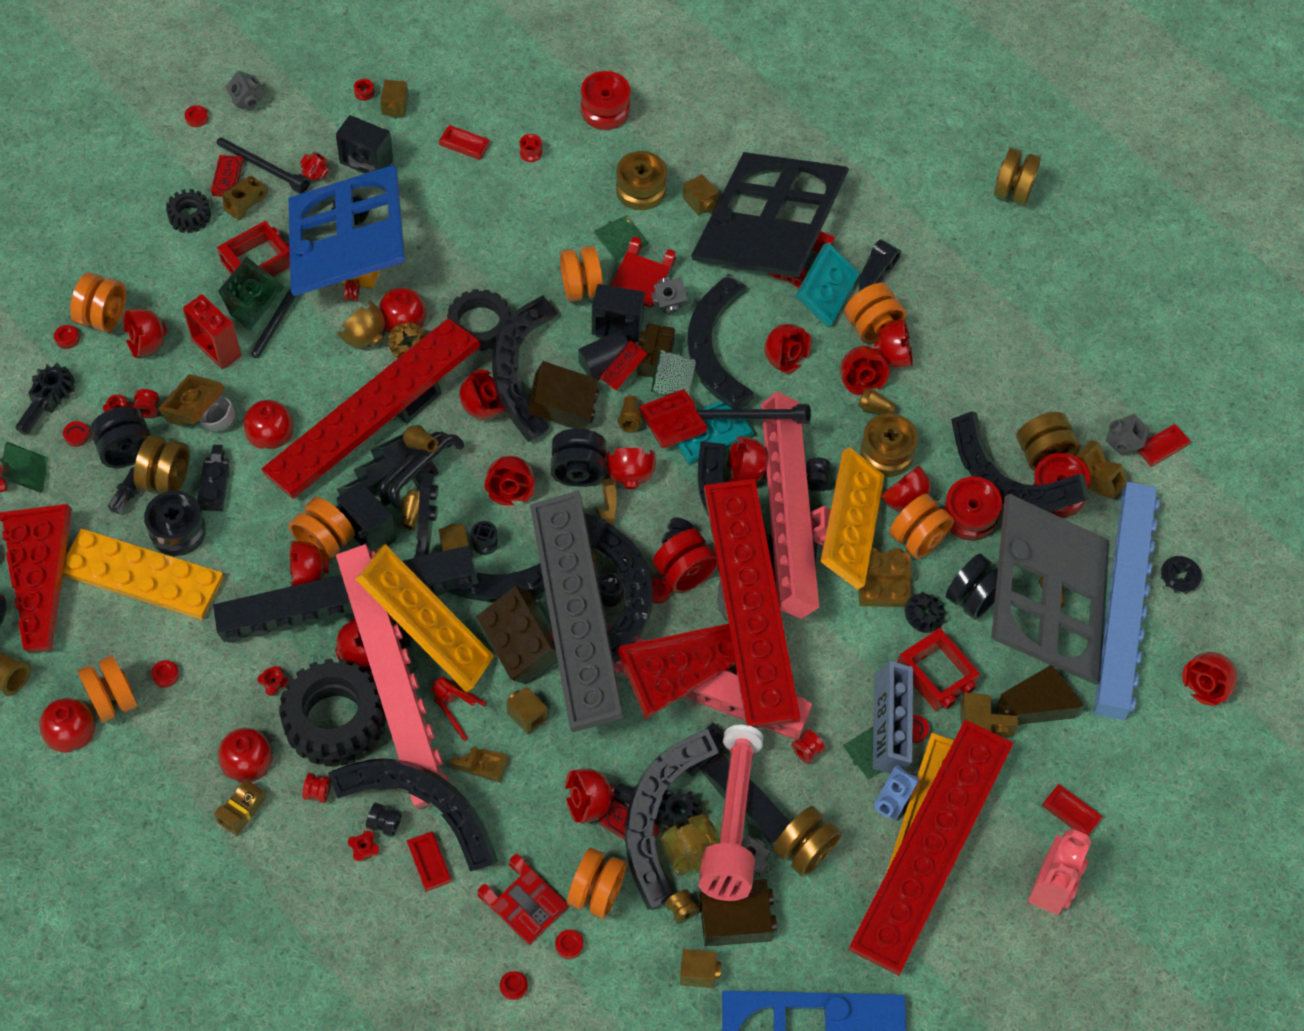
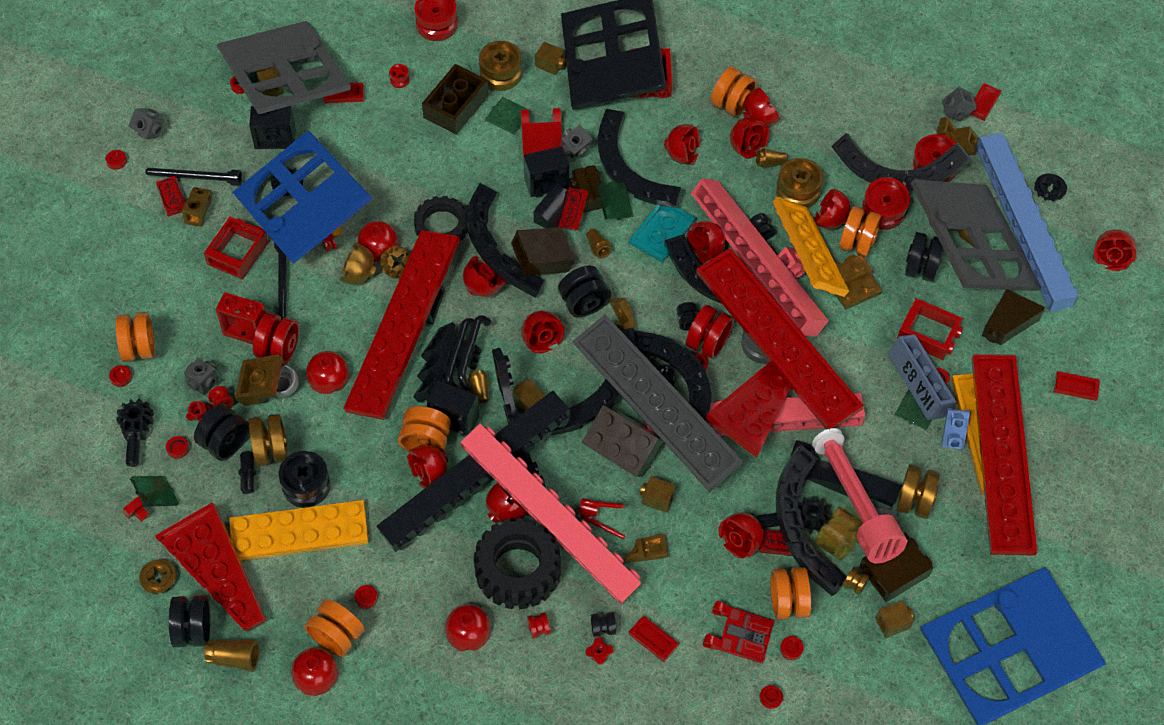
camera: 25 degrees left, 0 degrees up
(140, 371) = (201, 376): none -> dark grey brick
(144, 331) = (184, 344): red cylinder -> none
(187, 200) = (158, 226): black tyre -> none
(214, 481) = (311, 432): black hinge -> none
(234, 365) = (276, 337): none -> red wheel
(240, 807) = (489, 668): pearl gold leg -> none
(249, 293) = (255, 276): clear green slope -> none
(269, 674) = (453, 556): red plate -> none
(314, 166) = (239, 158): red gear -> none
(415, 68) = (276, 50): none -> dark grey door
(418, 438) = (457, 329): pearl gold cone -> none
(425, 617) = (551, 459): light orange plate -> none
(427, 787) = (625, 582): black plate -> none
(481, 542) = (552, 381): black wheel -> none
(571, 196) = (455, 99): none -> dark brown brick
(580, 272) = (500, 153): orange wheel -> none
(630, 466) = (626, 281): red cylinder -> none
(673, 418) = (633, 232): red slope -> none
(800, 413) = (729, 187): black piece -> none
(808, 746) = (873, 425): red wheel -> none
(827, 284) = (685, 86): teal tile -> none
(879, 264) = (710, 58): black piece -> none
(914, 613) = (890, 298): black gear -> none
(977, 709) = (976, 344): pearl gold brick -> none
(1046, 436) = (908, 131): pearl gold wheel -> none
(1061, 872) = (1101, 429): coral brick -> none

